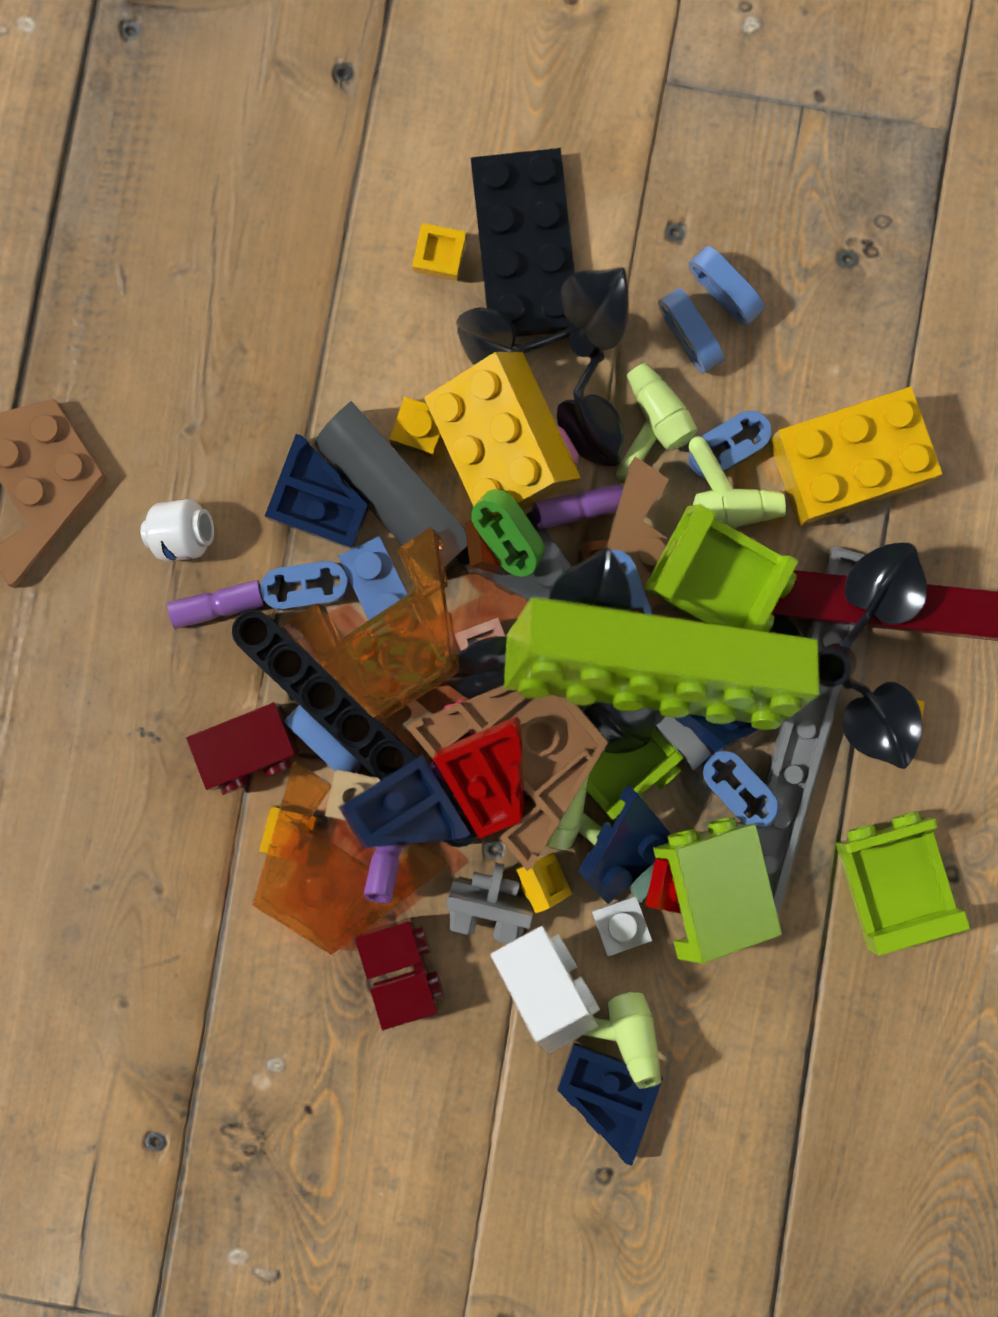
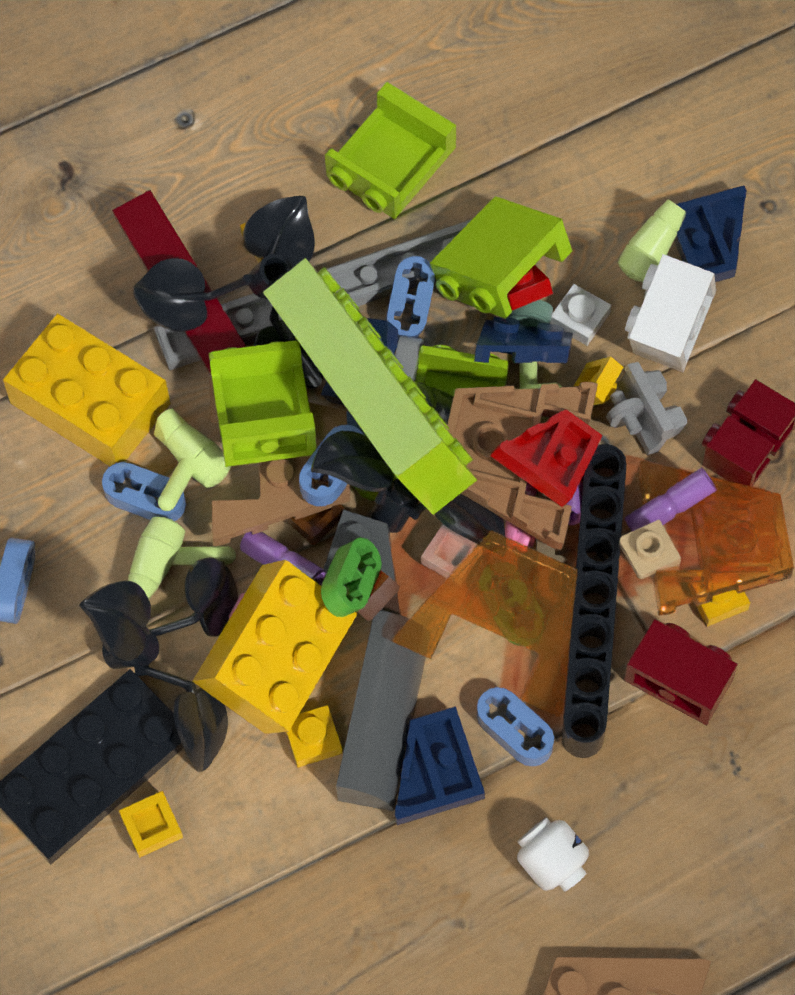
camera: 130 degrees left, 20 degrees down
(211, 605) = (591, 787): medium lavender piece -> none
(321, 741) = (626, 616): medium blue beam -> none
(373, 576) = (469, 670): medium blue plate -> none
(404, 810) = (627, 498): dark blue wing -> none
(691, 330) = (71, 581): medium blue beam -> none

